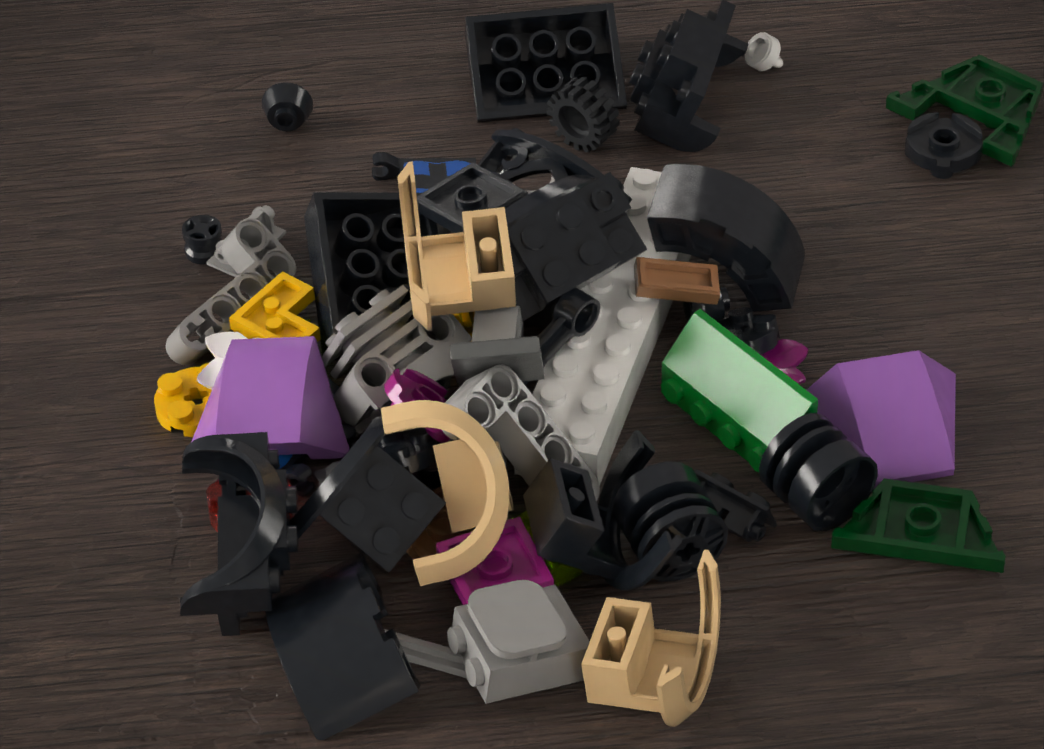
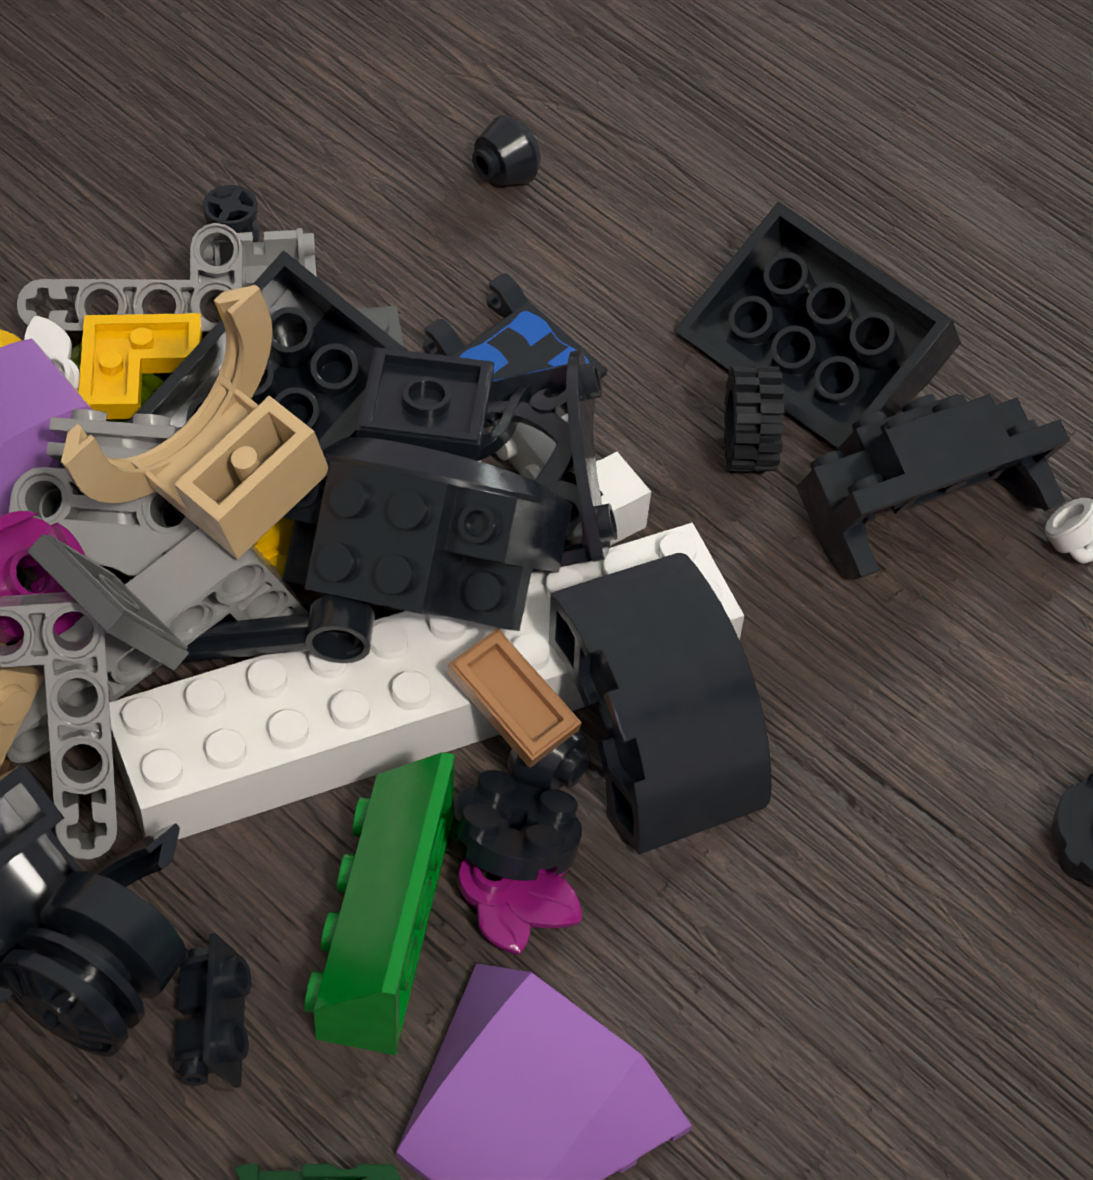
camera: 45 degrees right, 10 degrees up
(818, 471) = (315, 1077): black wheel -> none

